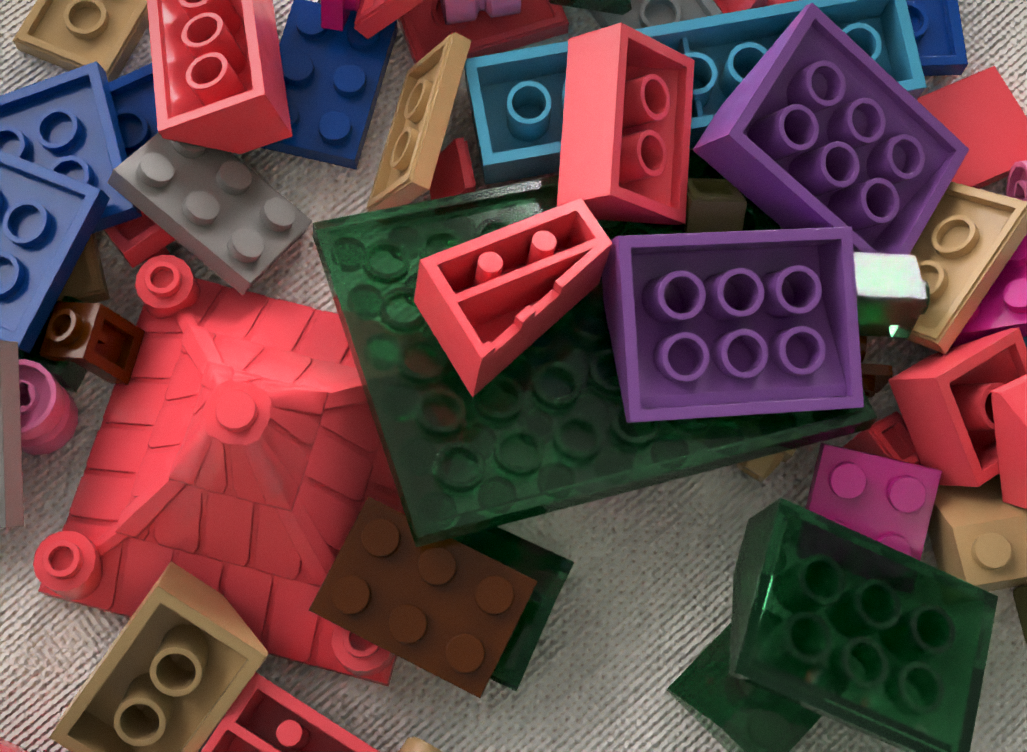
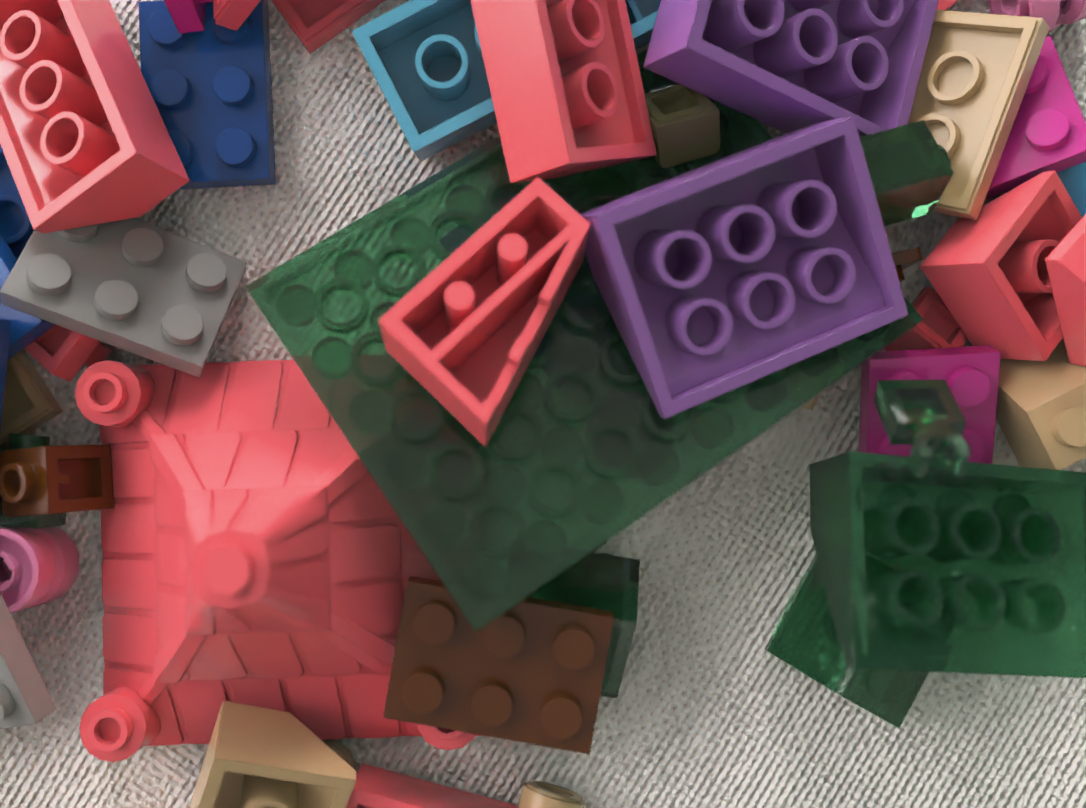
camera: 10 degrees left, 15 degrees up
(419, 125) = (327, 121): tan tile -> none
(453, 171) = (381, 166): coral slope -> none
(854, 499) = (927, 419): none -> clear green plate

